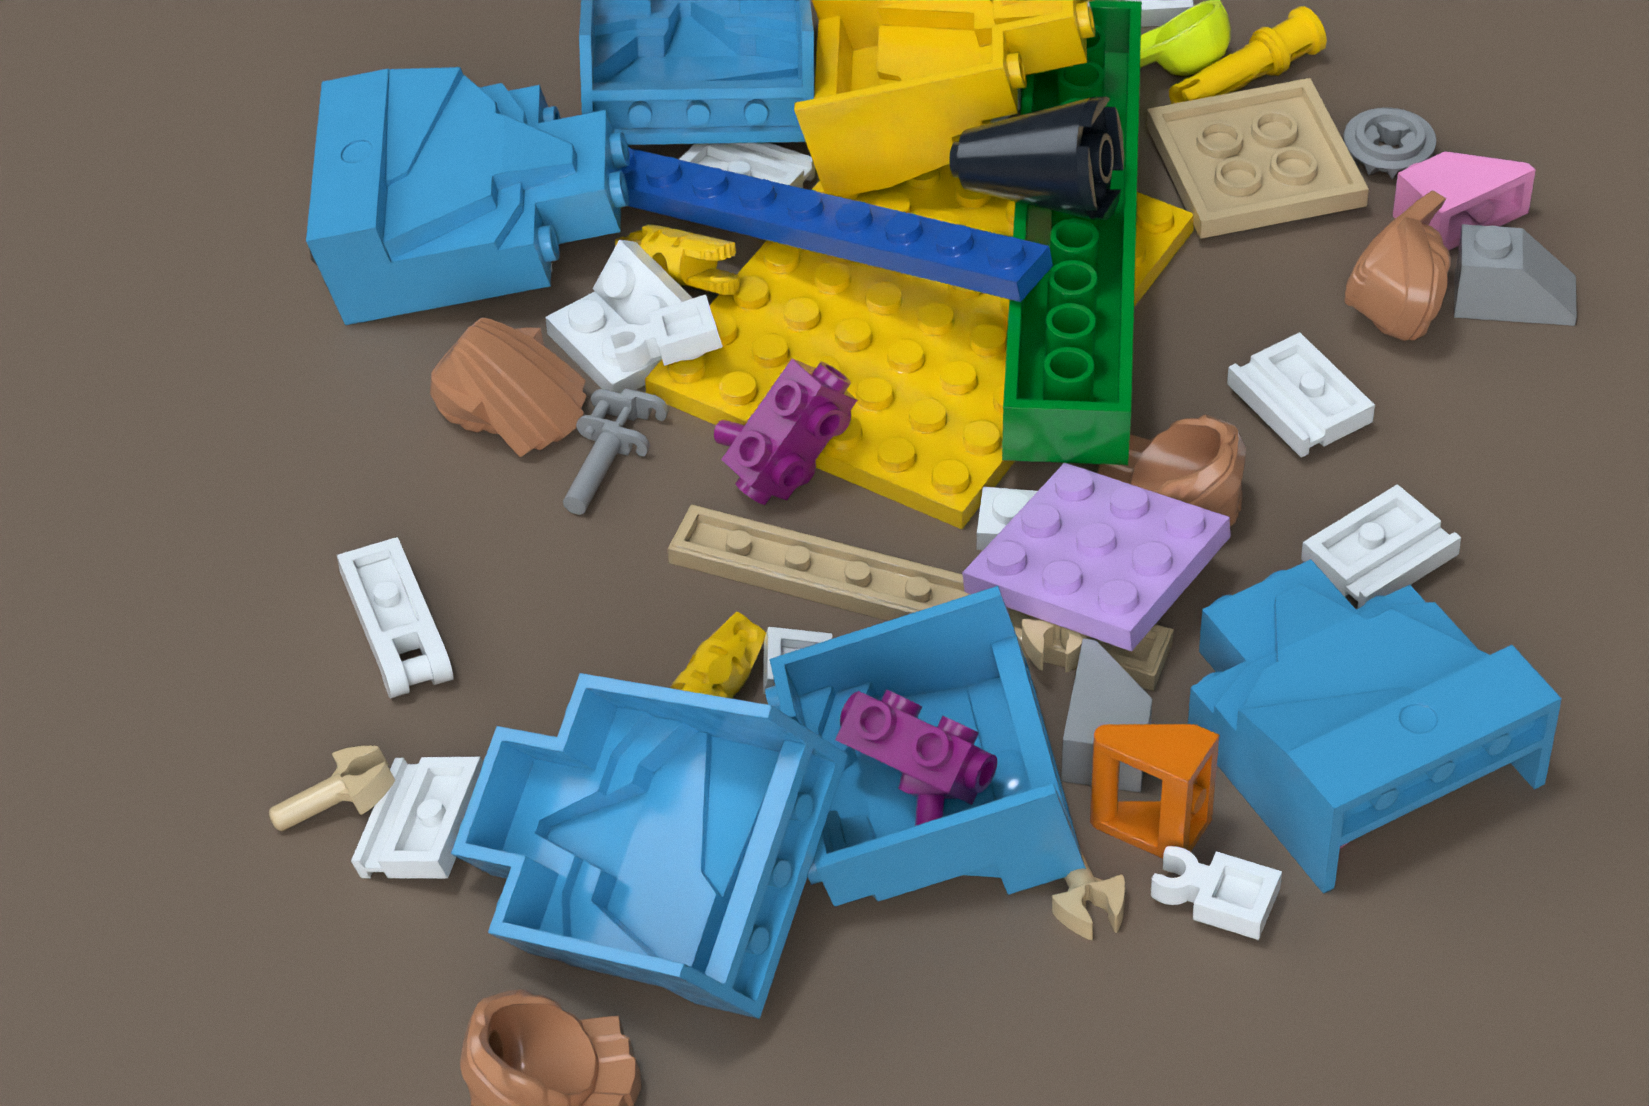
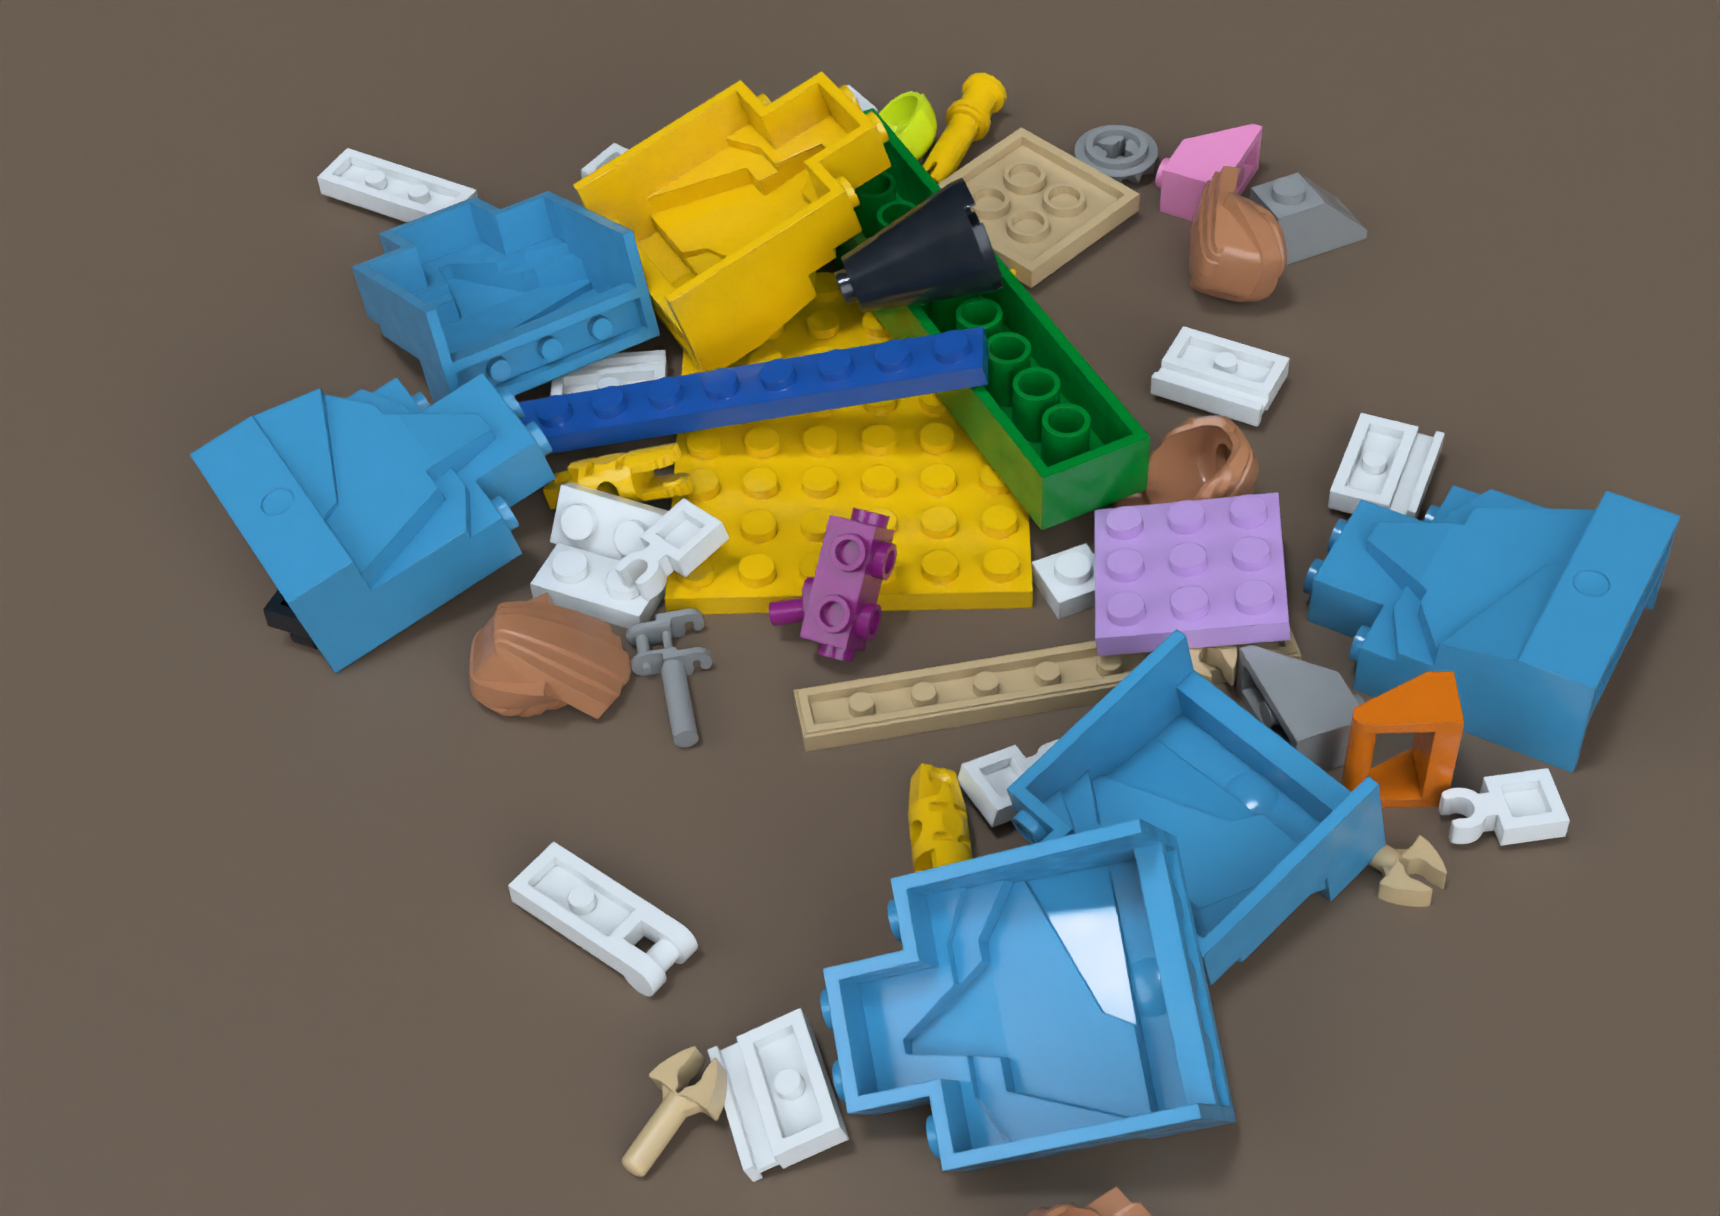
camera: 30 degrees left, 0 degrees up
(932, 759) = (1207, 809): magenta brick -> none

